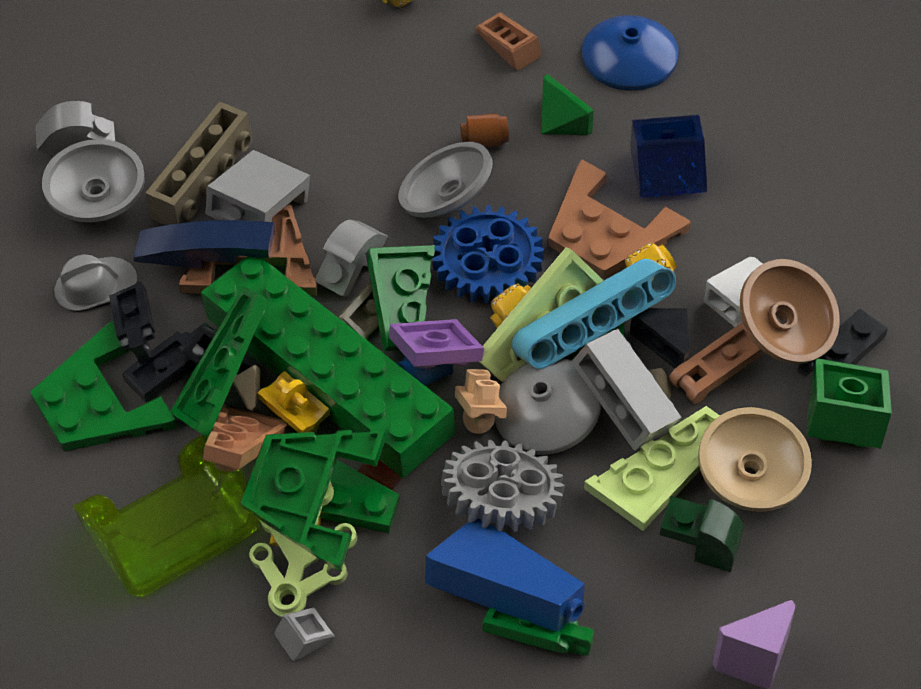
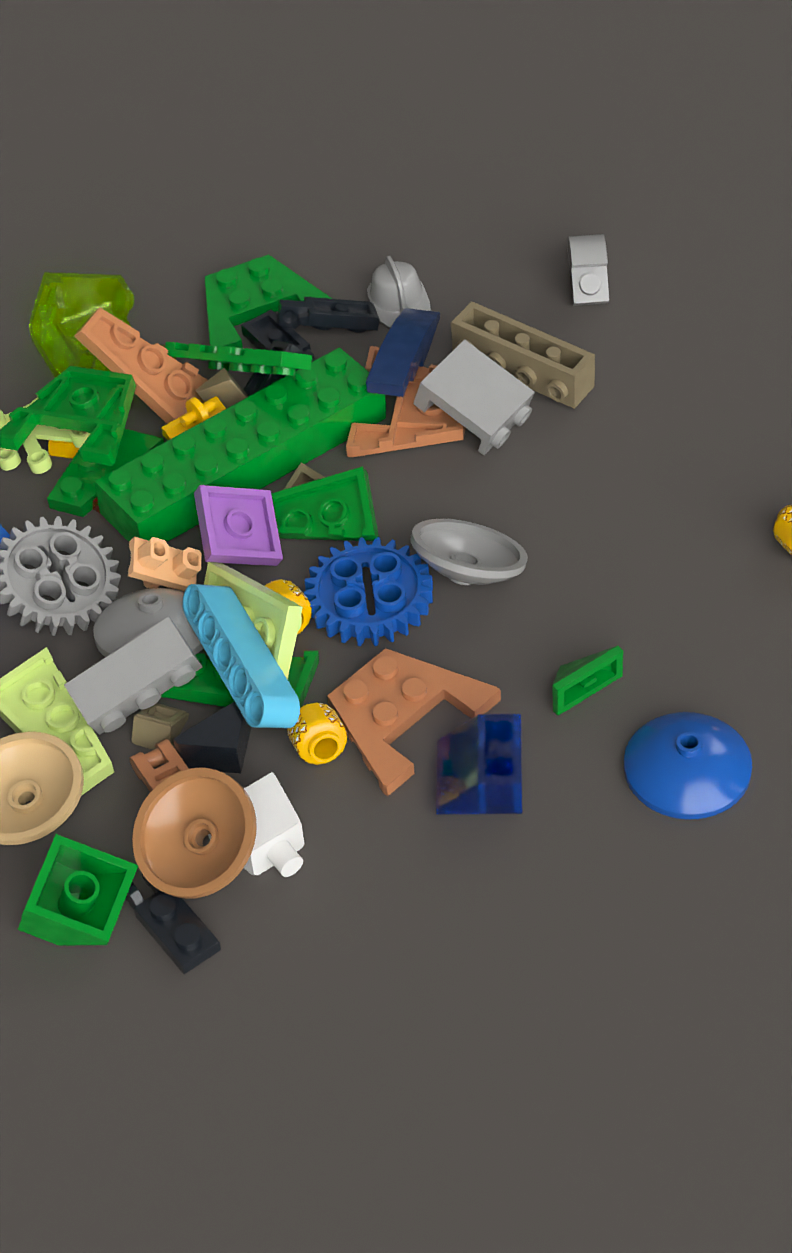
camera: 100 degrees right, 5 degrees down
(93, 180) = (511, 276): light grey dish -> none
(347, 255) = (390, 470): light grey brick -> none
(485, 129) = (553, 599): dark orange brick -> none
(512, 42) = (693, 654): nougat slope -> none

